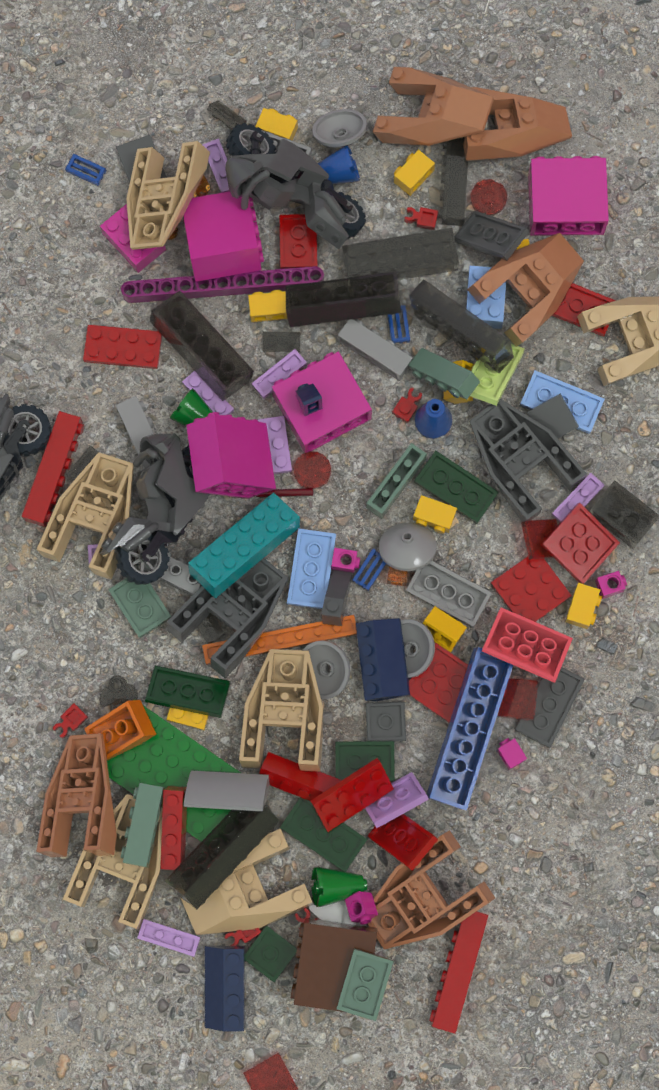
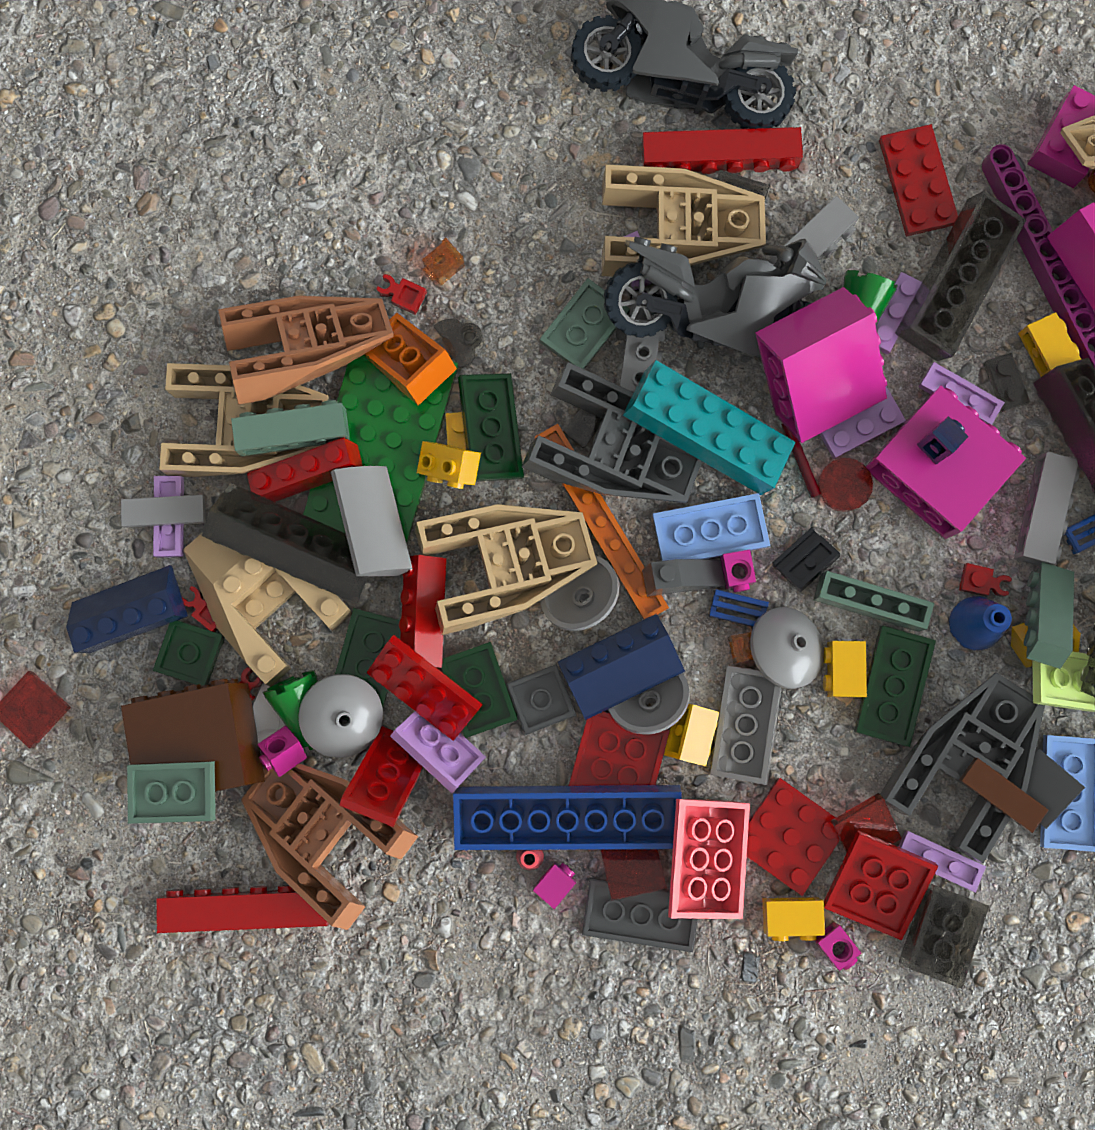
camera: 70 degrees right, 5 degrees up
(56, 677) = (442, 272): none -> clear orange brick
(165, 938) = (163, 511): none -> light grey tile
(204, 727) = (448, 463): none -> yellow brick
(343, 865) = (329, 701): none -> light grey dish
(353, 513) = (806, 559): none -> black plate
(488, 770) = (538, 854): none -> coral cone
(548, 445) = (1003, 795): none -> reddish brown tile

